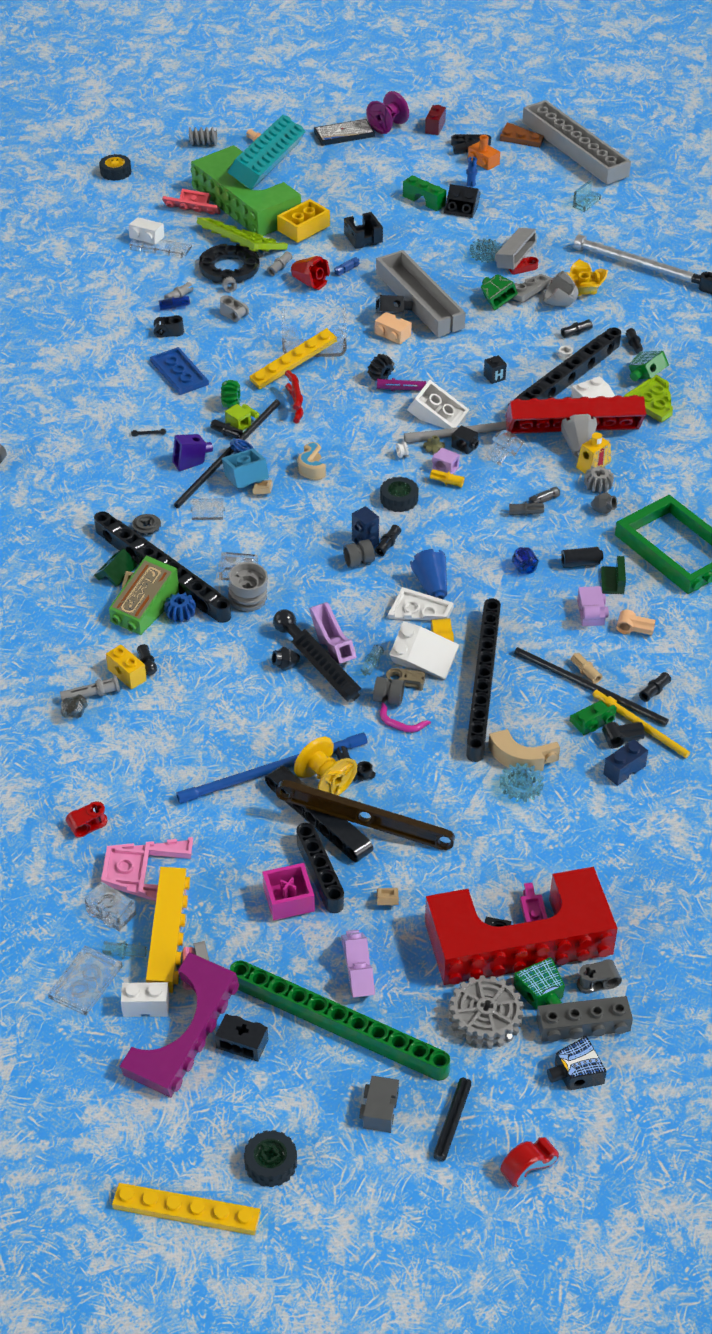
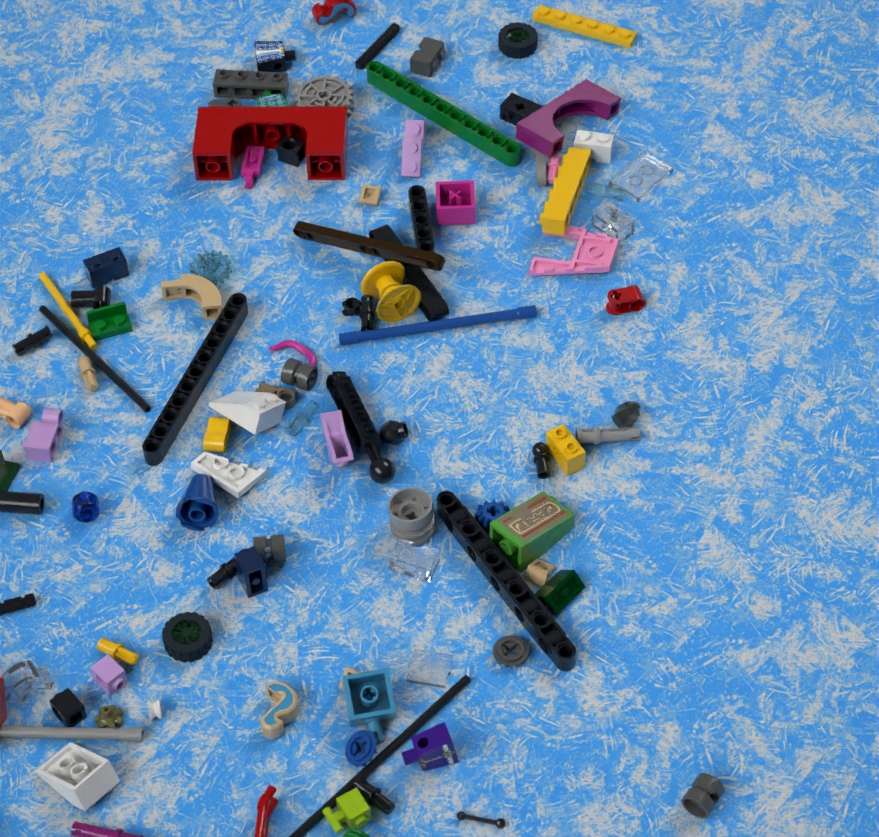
camera: 165 degrees left, 5 degrees up
(534, 508) = (46, 585): dark grey axle -> none

